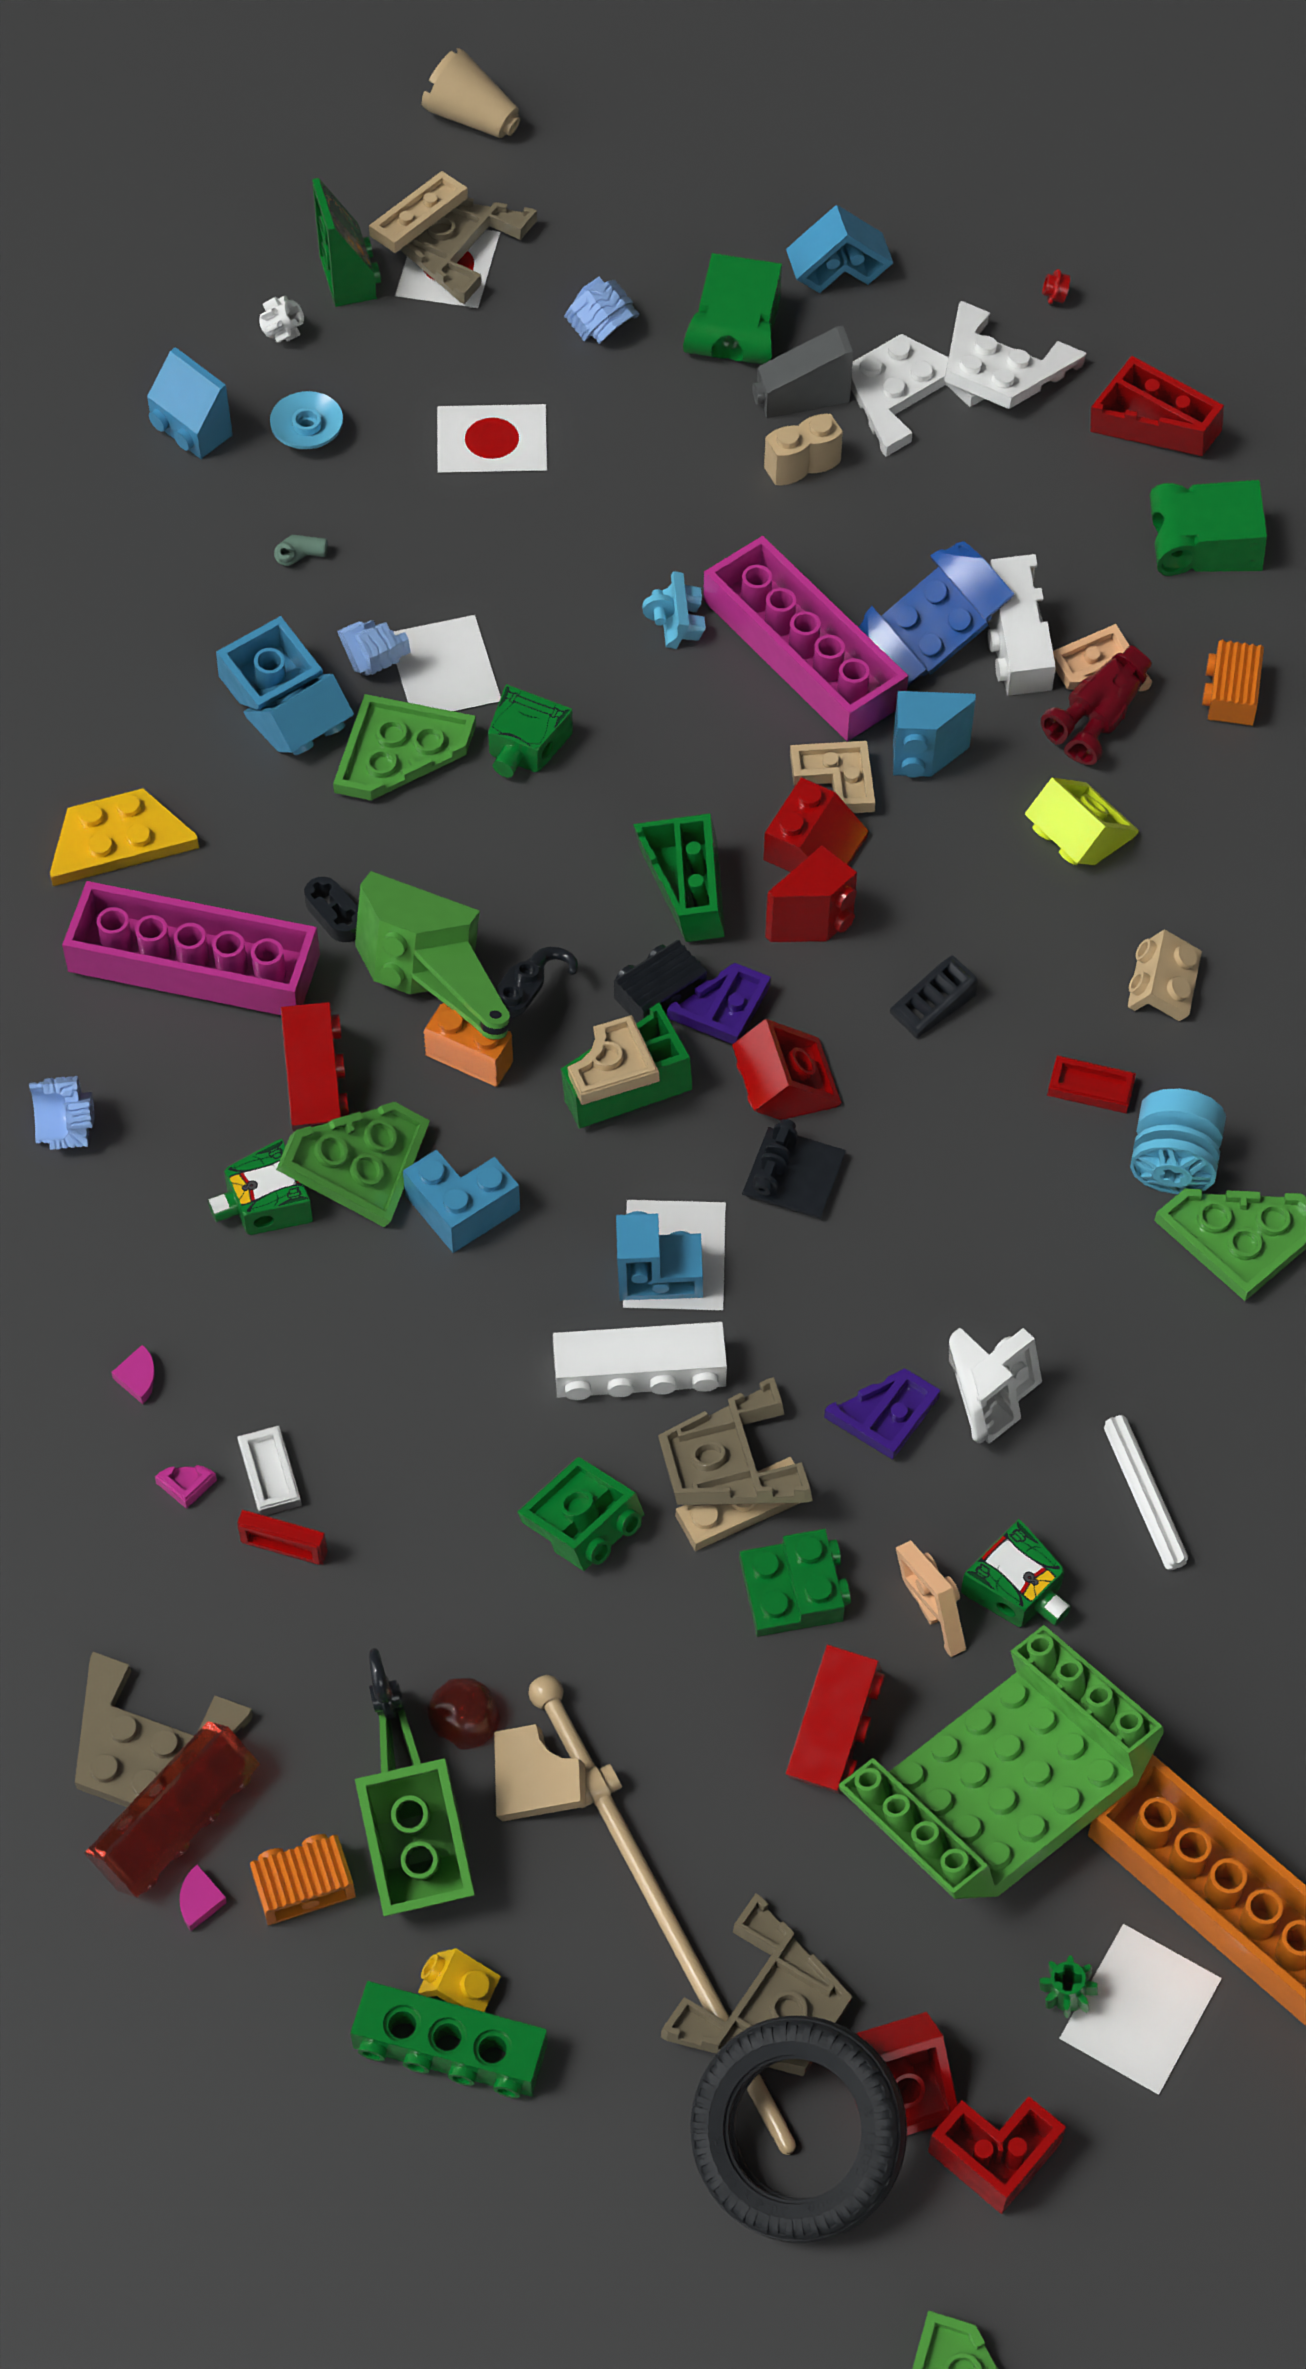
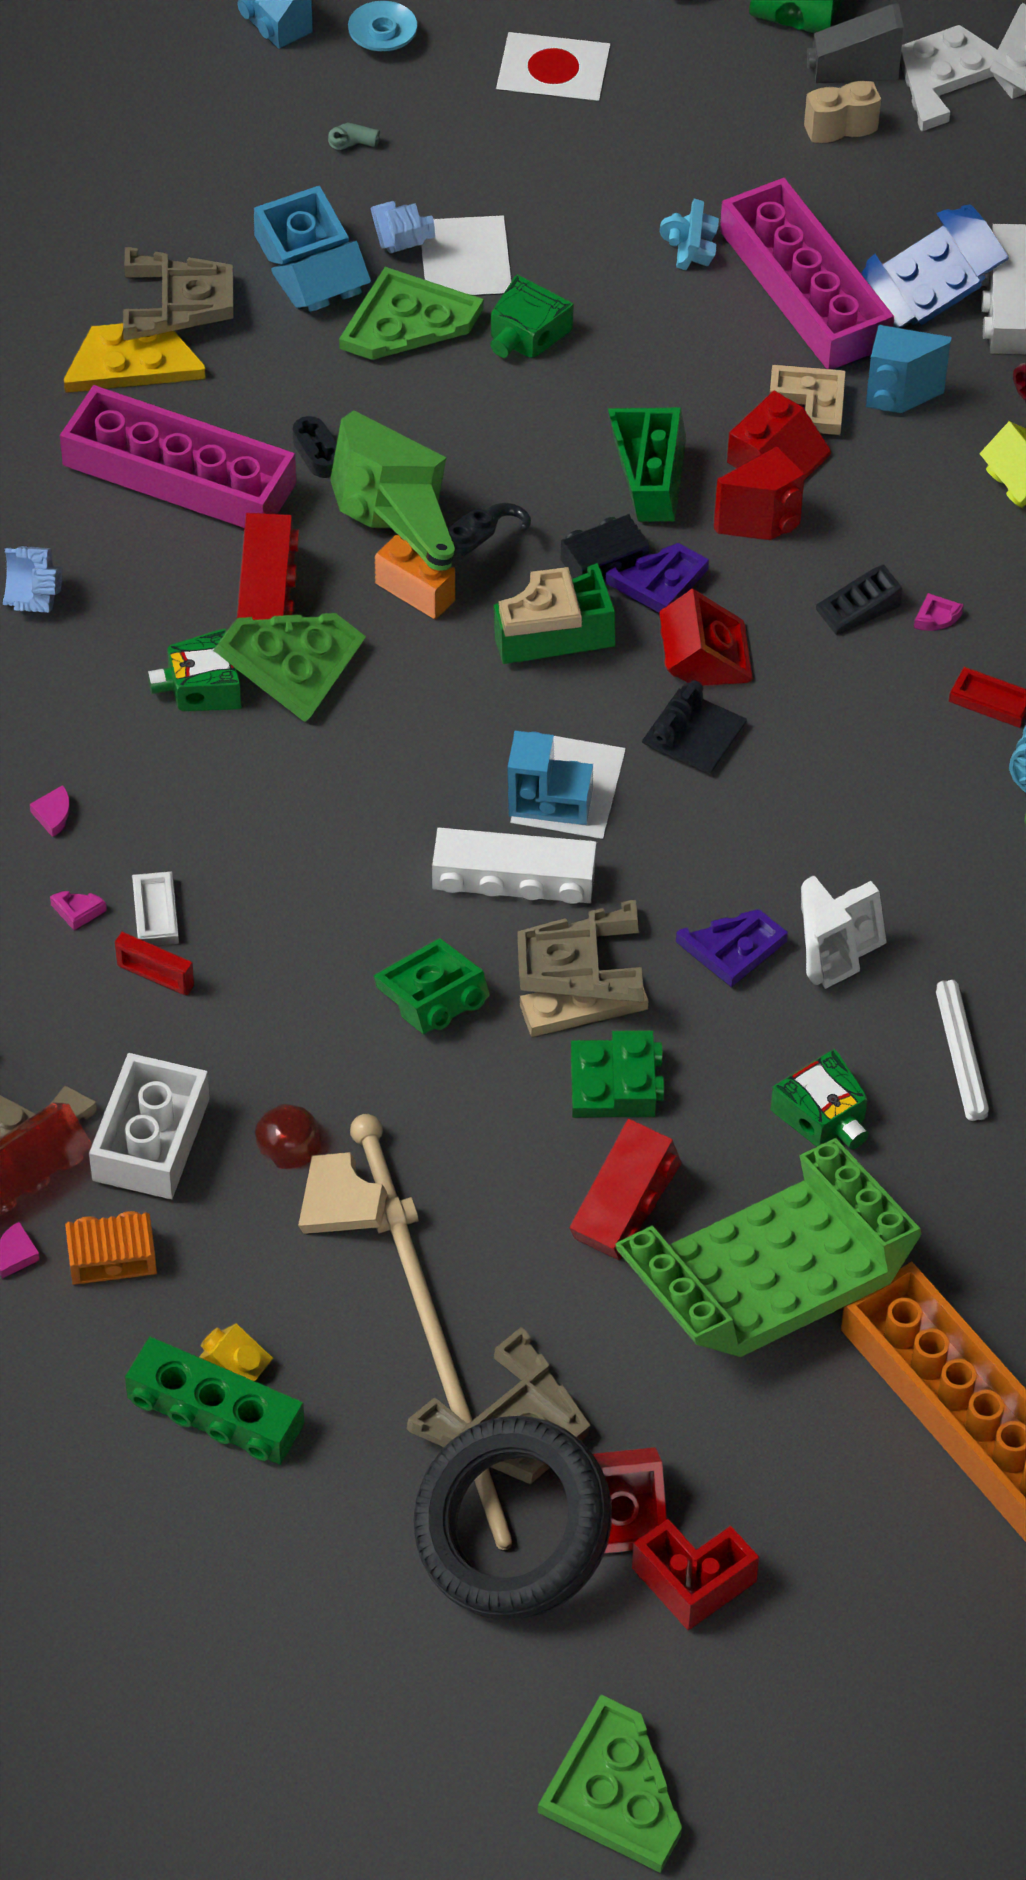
camera: 10 degrees right, 5 degrees down
(169, 755) = (191, 294): none -> dark tan wing
(316, 1731) = (149, 1126): none -> white brick
(411, 1816) = (218, 1202): bright green slope -> none
(460, 1206) = (378, 711): dark azure brick -> none
(933, 1593) = (742, 1103): light nougat wing -> none
(1016, 998) = (937, 613): none -> dark pink tile
(1068, 2000) = (792, 1449): green gear -> none
(1142, 2009) = (857, 1483): white sticker -> none

